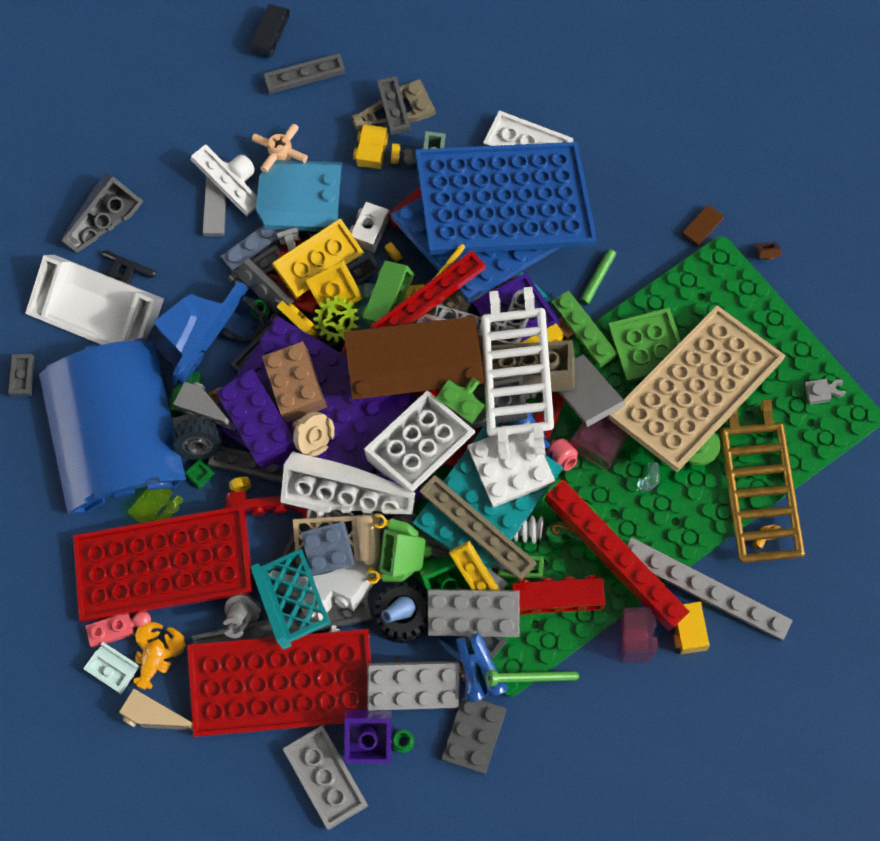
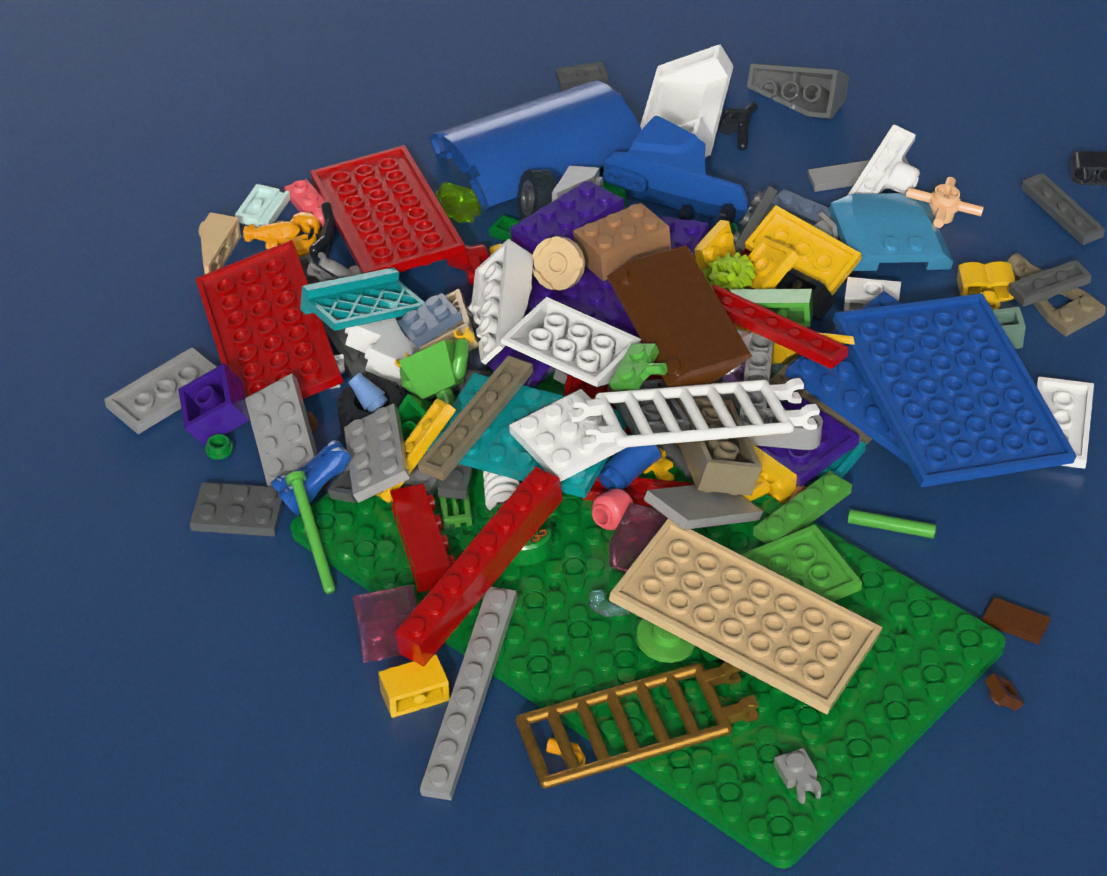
camera: 75 degrees right, 25 degrees down
(173, 619) = (325, 236): none -> black piece

